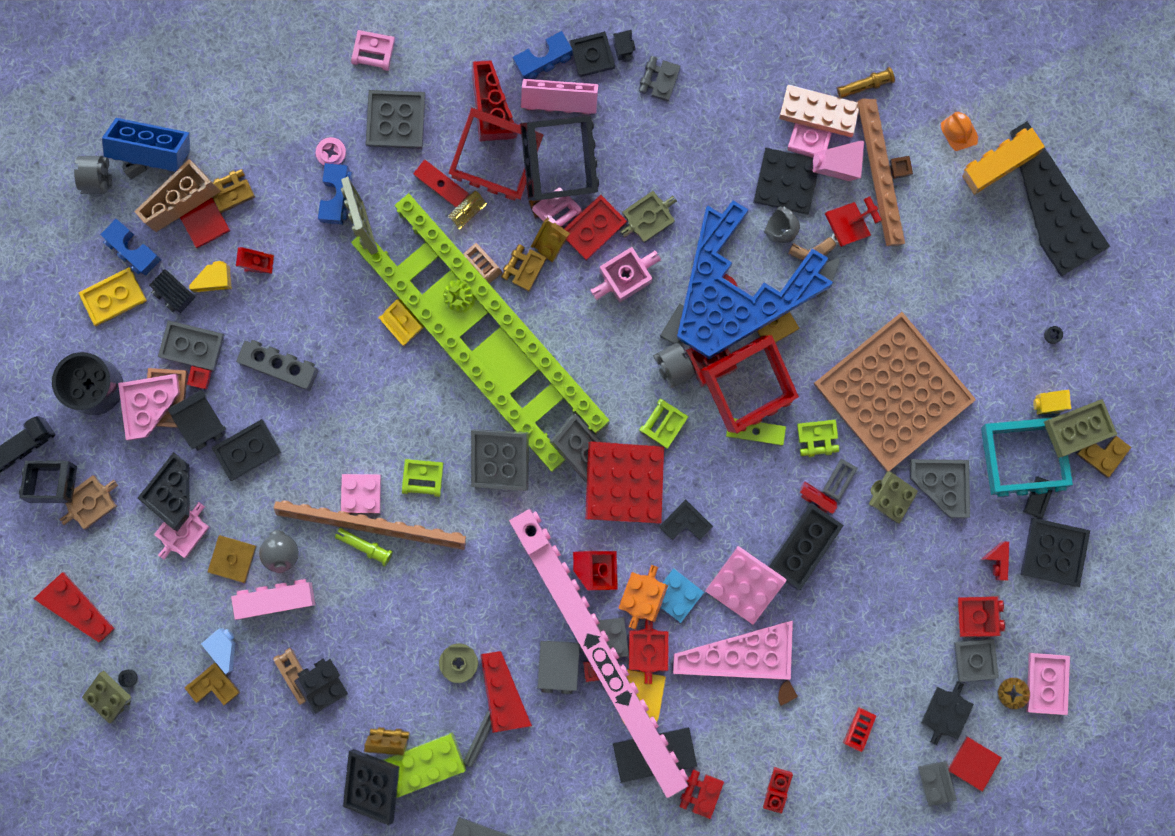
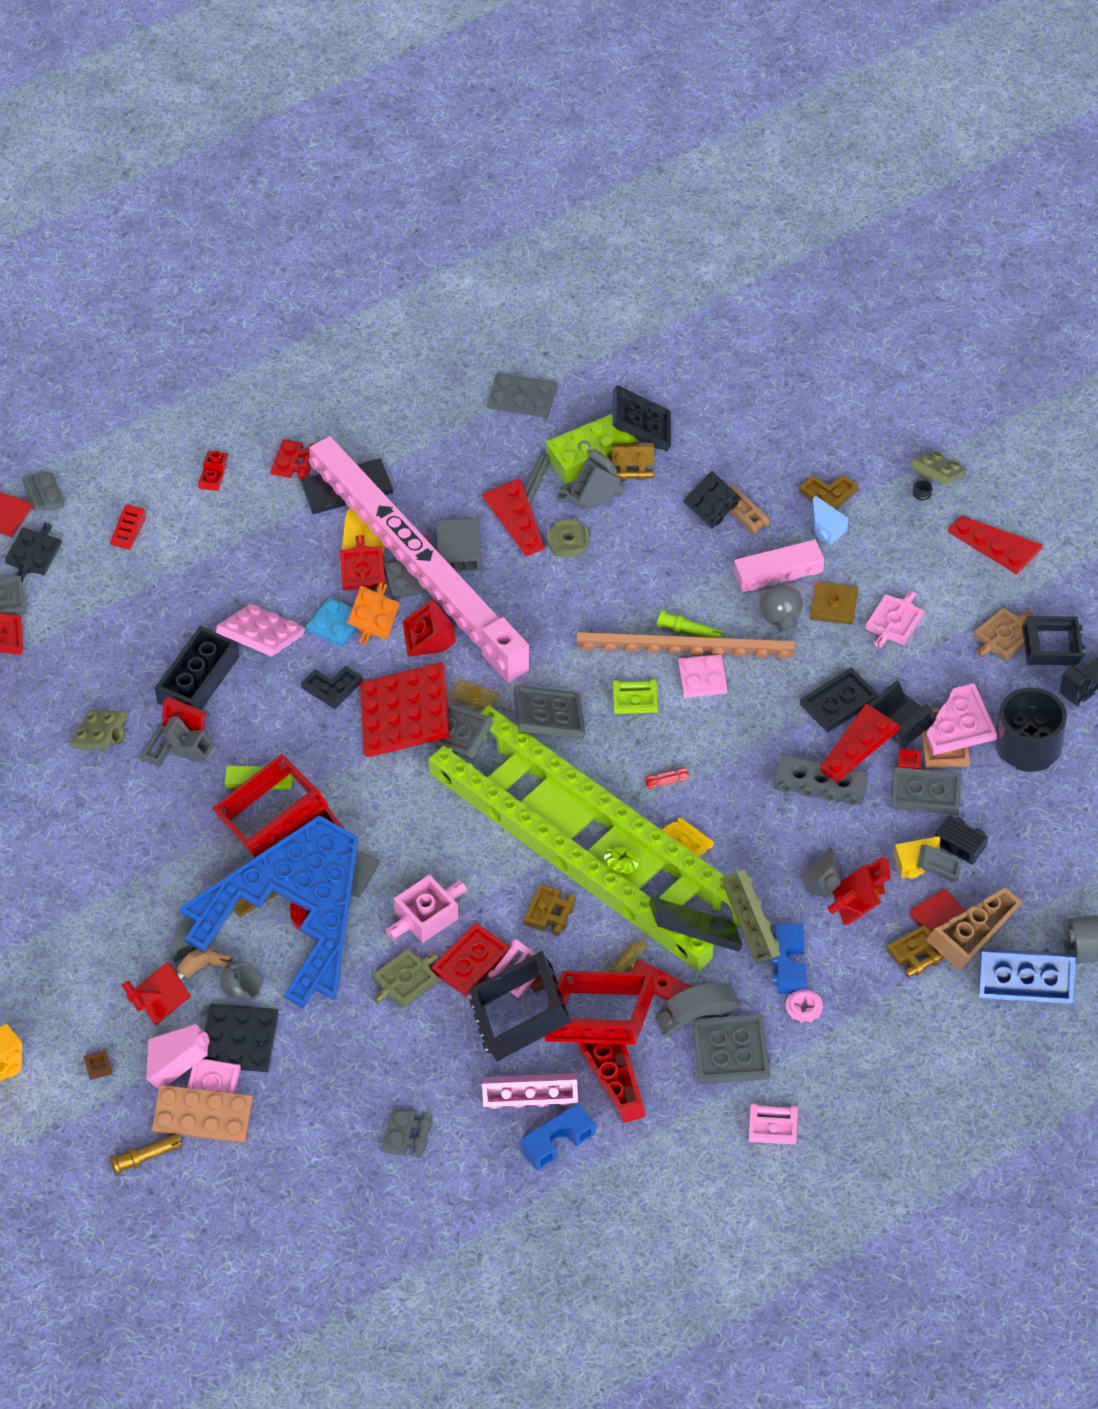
camera: 175 degrees right, 30 degrees down
(112, 296) = (1031, 831): yellow tile -> none
(118, 236) = (1007, 866): blue arch -> none
(170, 492) = (915, 646): black plate -> none
(194, 265) = (939, 863): none -> dark grey tile
(232, 392) = (861, 739): none -> red wing
(270, 241) = (855, 896): none -> red plate
(291, 268) = (823, 875): none -> dark grey slope
(406, 221) = (695, 924): none -> black tile
(410, 388) = (666, 778): none -> axle
(415, 151) = (695, 1002): none -> dark grey arch
(425, 715) = (595, 482): none -> dark grey torso
(489, 273) = (583, 906): nougat slope -> none
(550, 239) = (519, 931): pearl gold plate -> none
(562, 497) = (473, 695): none -> clear yellow plate
(592, 54) = (495, 1148): black plate -> none
(624, 46) = (456, 1160): black brick -> none
(669, 427) = (360, 770): lime plate -> none
(674, 365) = (360, 820): dark grey brick -> none
(750, 655) = (249, 577): bright pink wing -> none
(786, 693) = (208, 551): reddish brown tile -> none
(815, 473) = (186, 743): none -> dark grey brick
(818, 431) = (186, 785): lime plate -> none
(881, 172) = (123, 1057): nougat plate -> none
(894, 391) = (99, 834): nougat plate -> none
(944, 483) = (40, 752): dark grey plate -> none
(959, 131) = (25, 1118): orange piece -> none

